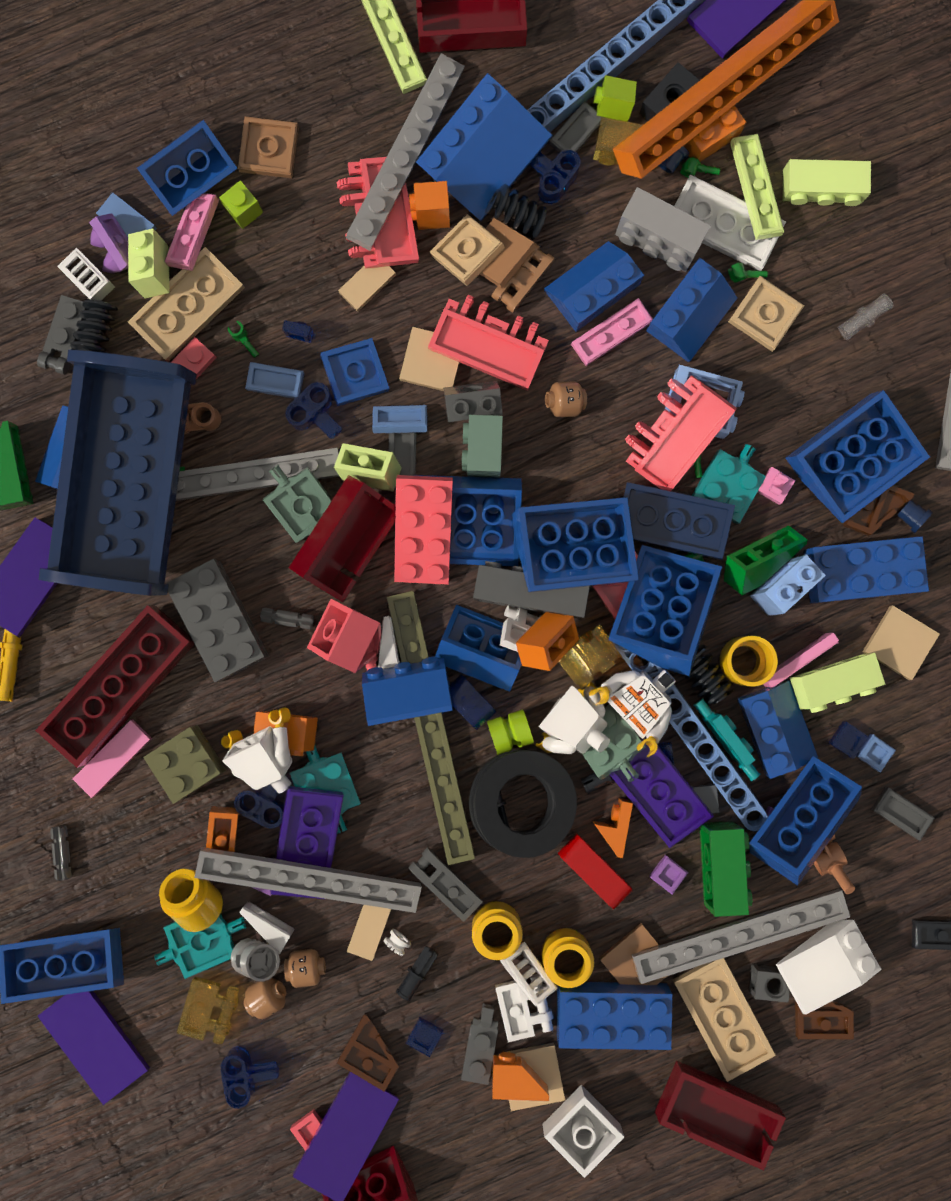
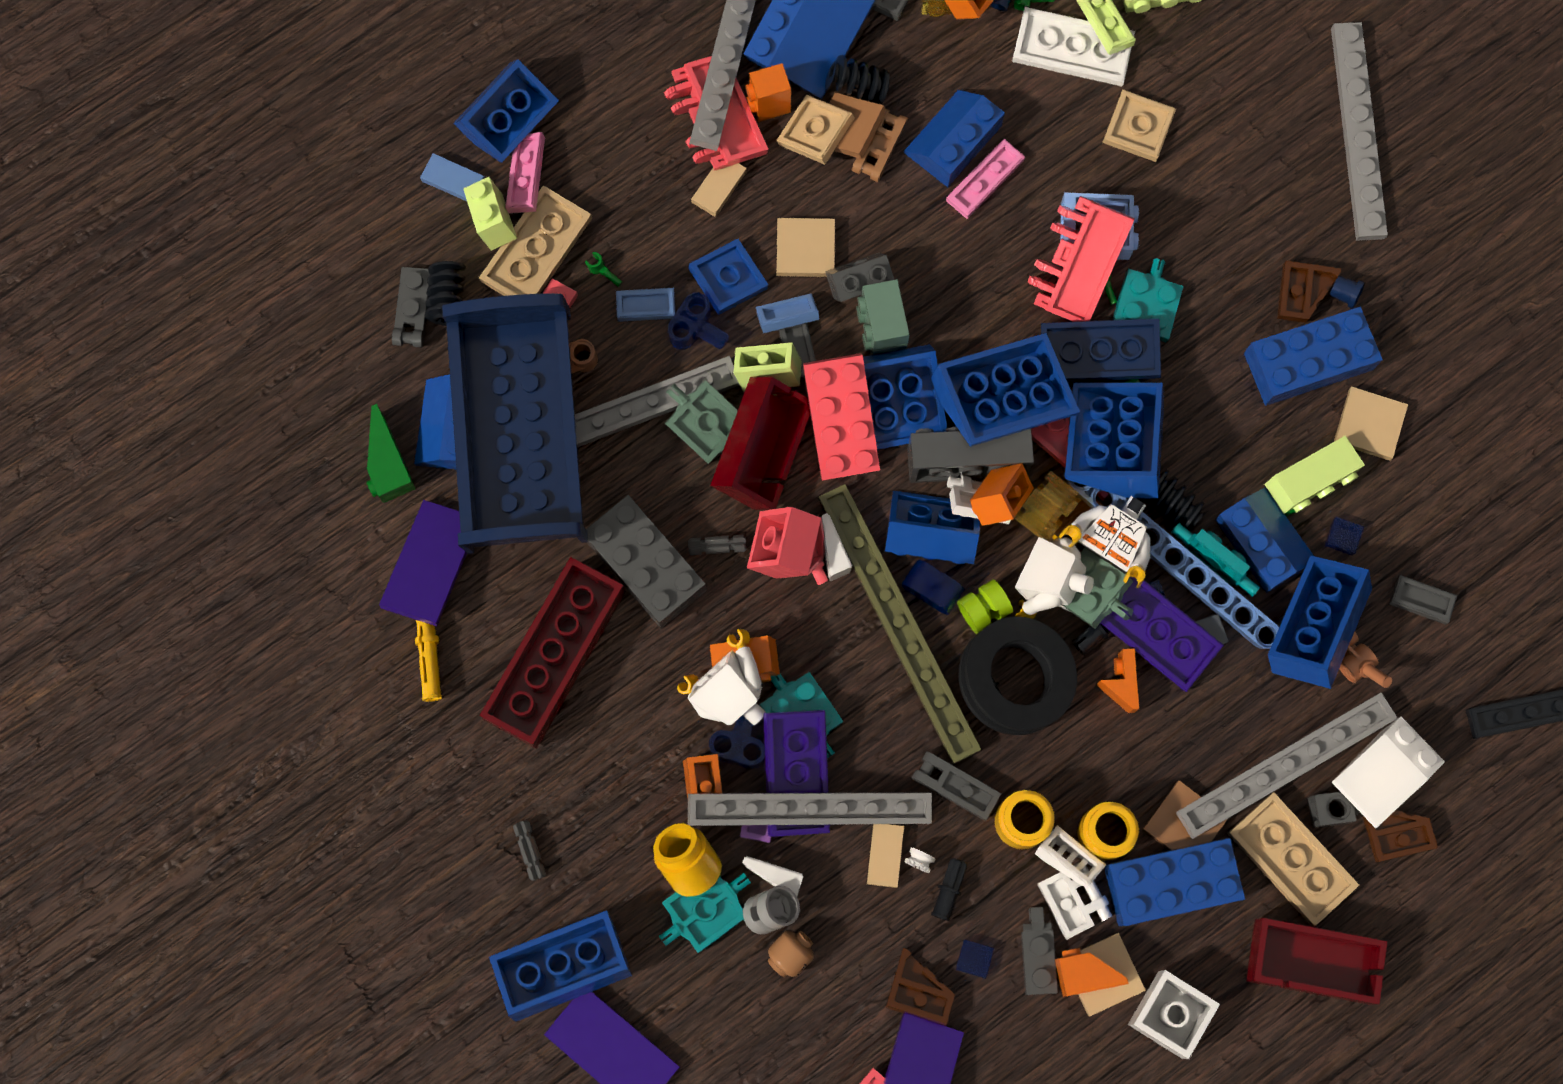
camera: 10 degrees left, 10 degrees down
(100, 290) = (442, 252): white slope -> none
(109, 234) = (438, 194): medium lavender tile -> none
(112, 758) = (562, 736): bright pink tile -> none
(184, 763) = (645, 720): olive brick -> none
(199, 1009) = (721, 984): clear yellow plate -> none
(241, 204) = (571, 135): lime brick -> none
(244, 1076) = (791, 1044): clear blue beam -> none
(268, 147) = (584, 74): medium nougat tile -> none
(298, 331) = (659, 248): clear blue tile -> none
(304, 968) = (826, 910): medium nougat head -> none
(406, 691) = (866, 580): blue slope -> none
(487, 344) = (860, 218): coral hinge -> none
(554, 174) = (888, 36): clear blue beam -> none
(566, 399) = (956, 254): medium nougat head -> none
(595, 871) = (1113, 734): red beam -> none
(661, 230) = (1011, 65): light grey brick -> none
(668, 874) = (1192, 721): medium lavender tile -> none
(693, 310) = (1063, 138): blue slope -> none
(725, 868) = (1249, 693): green brick -> none
(738, 273) = (1100, 92): green hand -> none
(762, 559) = (1201, 370): green slope -> none
(765, 661) = (1225, 458): yellow piece -> none
(776, 486) = (1196, 294): bright pink tile -> none
(780, 590) = (1235, 387): light blue window -> none
(802, 658) = (1269, 463): bright pink tile -> none
(858, 456) = (1272, 243): blue slope -> none
(865, 316) = (1241, 105): clear pin -> none
(875, 753) = (1376, 543): medium blue tile -> none

